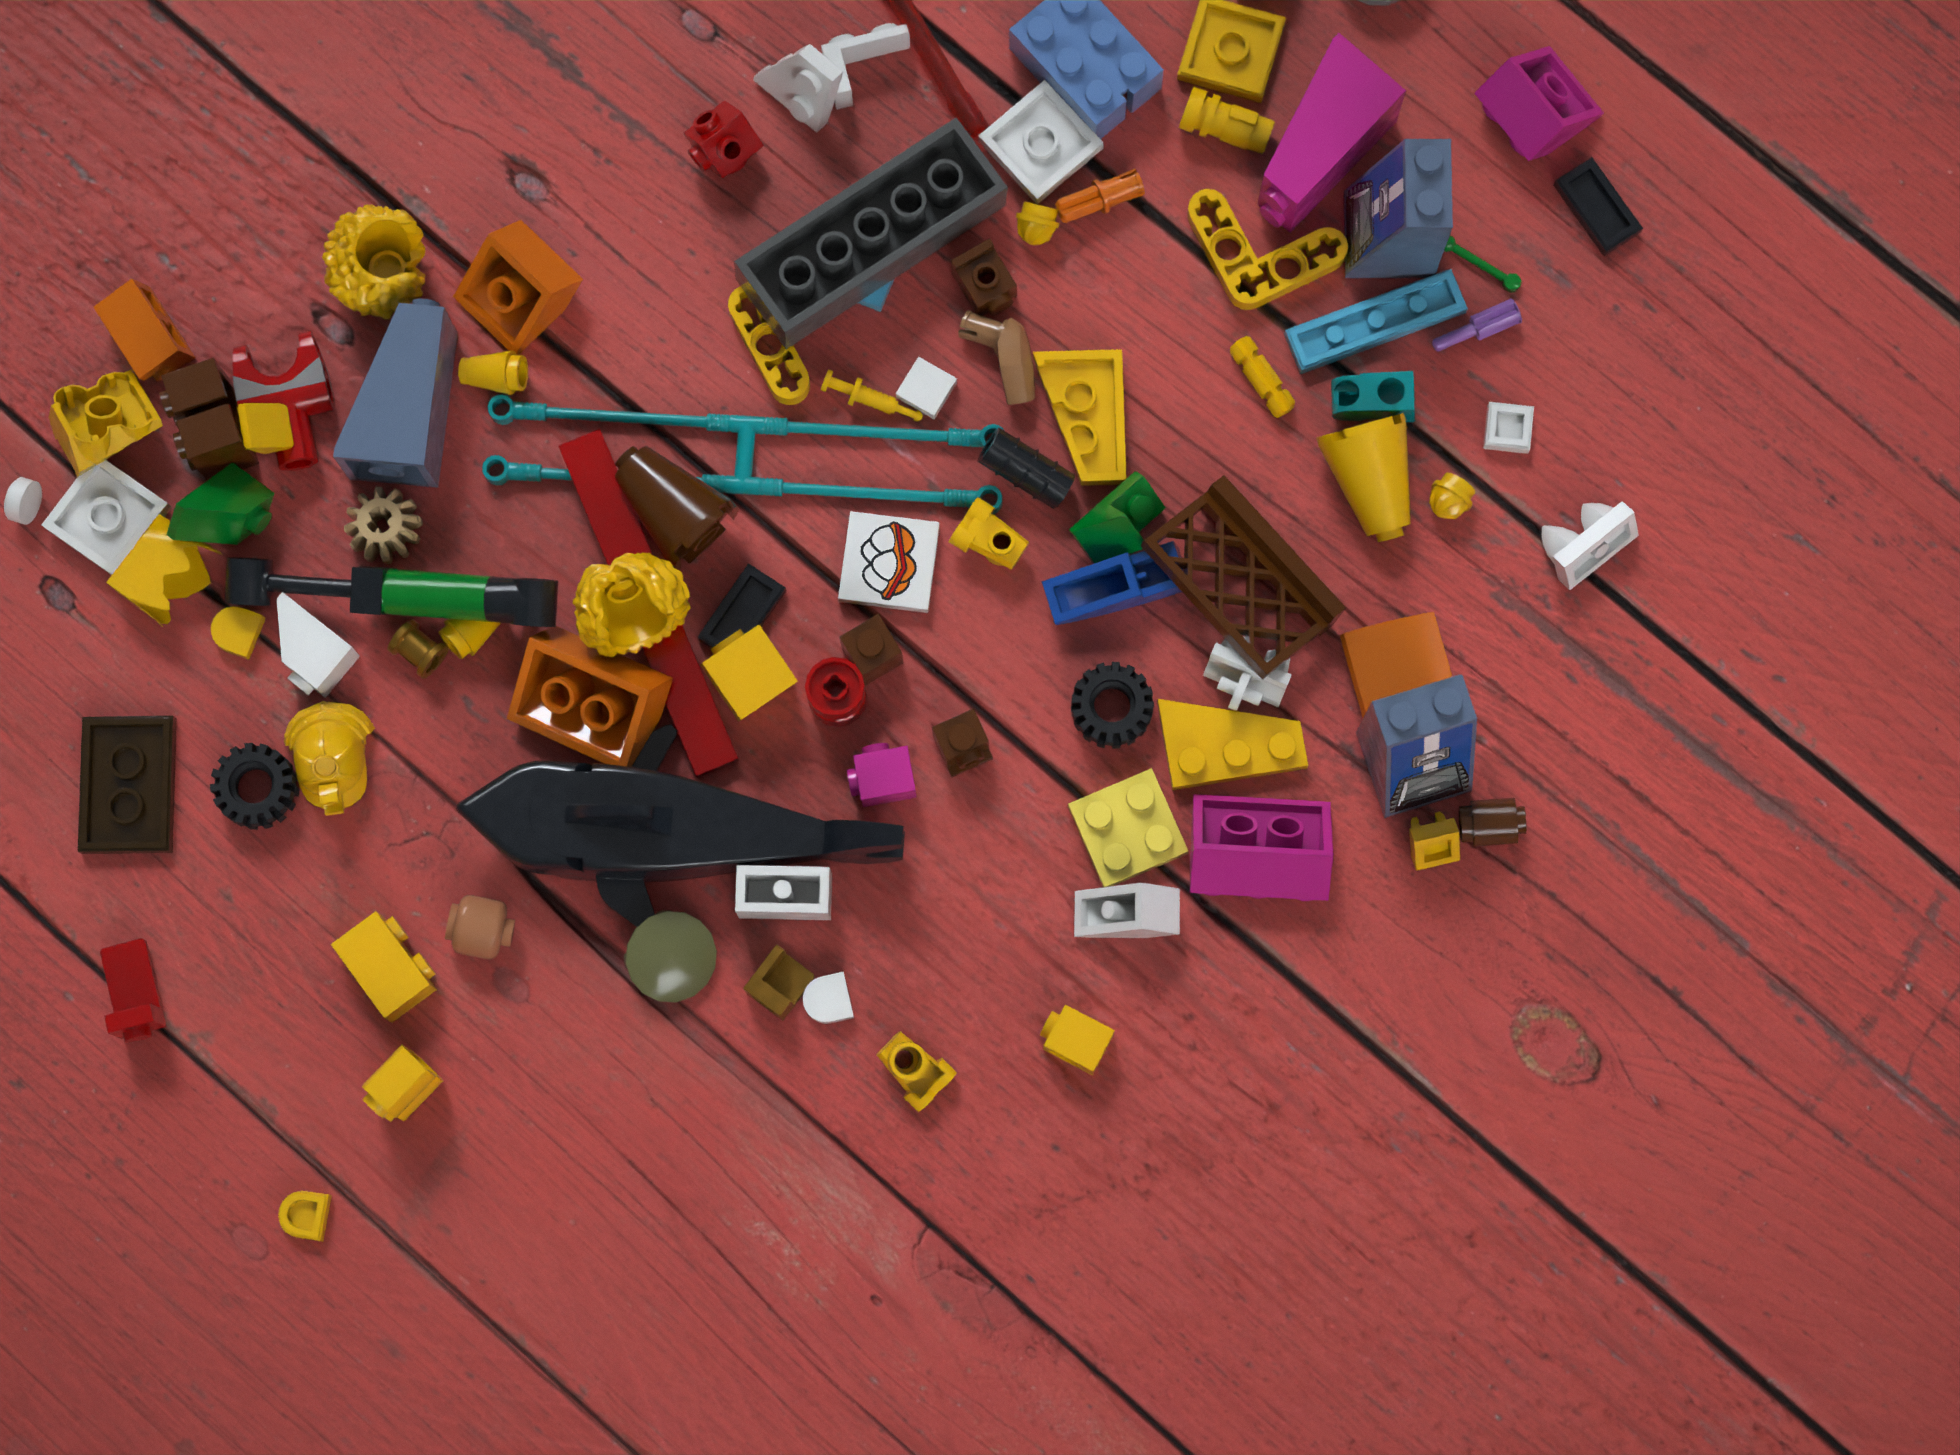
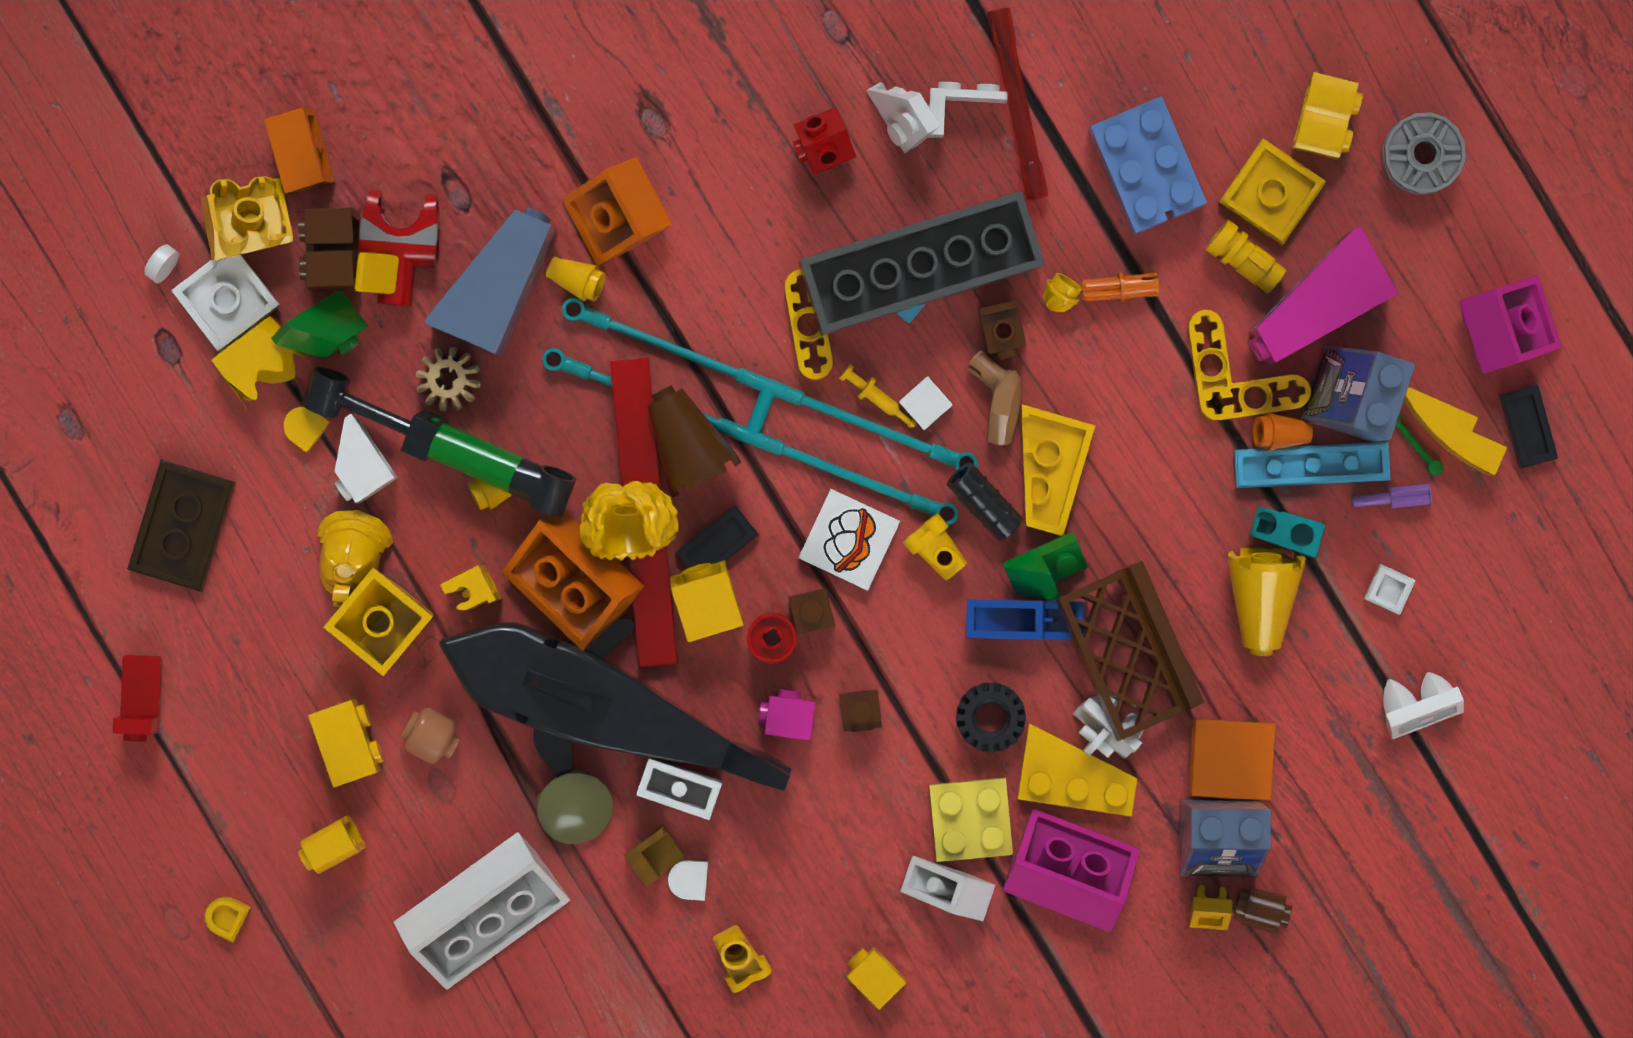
camera: 10 degrees right, 10 degrees up
(229, 776) = (261, 553): black tyre -> none
(374, 260) = (505, 157): yellow hair -> none
(381, 812) = (378, 621): none -> yellow slope
(417, 648) = (446, 491): pearl gold bush -> none
(472, 737) = (479, 587): none -> yellow hinge
(599, 1110) = (481, 911): none -> white slope
(1040, 142) = (1087, 224): white plate -> none
(1262, 376) = (1203, 482): yellow axle -> none
(1328, 293) = (1279, 432): none -> orange cone
(1451, 496) = (1321, 634): yellow plate -> none
(1517, 233) = (1453, 431): none -> yellow slope

